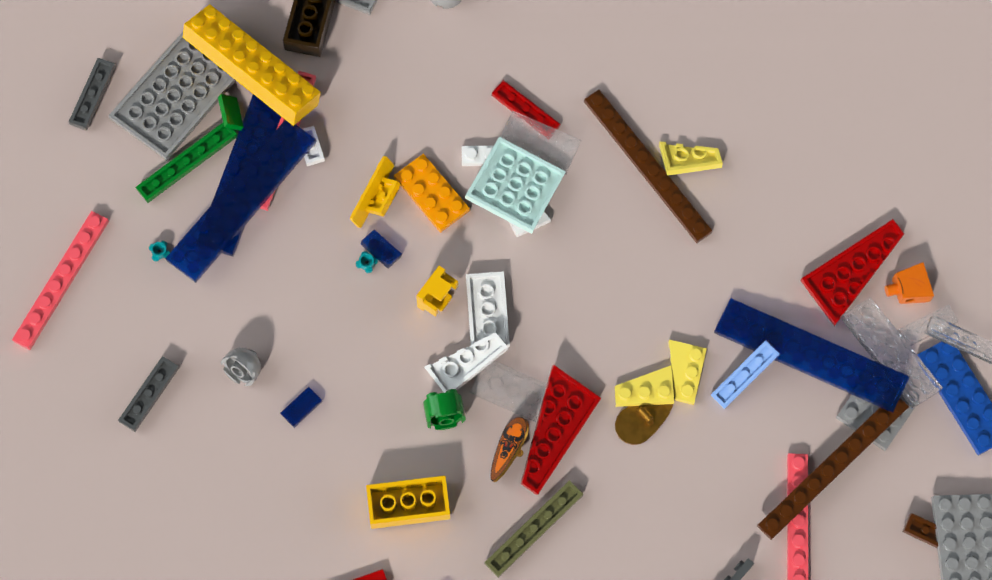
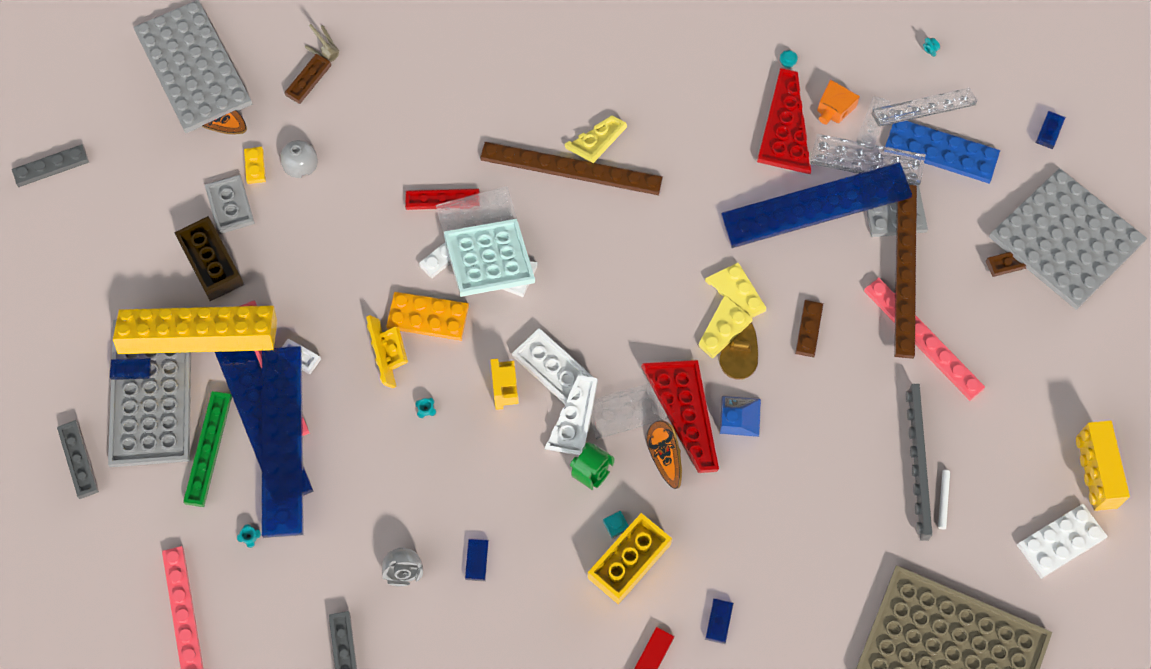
camera: 40 degrees left, 5 degrees down
(183, 56) = (130, 369): none -> clear blue tile
(230, 112) = (210, 381): green tile -> none
(381, 249) = (428, 388): clear blue plate -> none
(424, 468) = (615, 524): none -> teal plate
(533, 529) = (739, 498): olive plate -> none
(594, 468) = (740, 416): none -> blue slope
(713, 447) = (809, 328): none -> reddish brown plate
(745, 374) = (784, 257): light blue tile -> none
(909, 216) = (788, 58): none -> teal plate

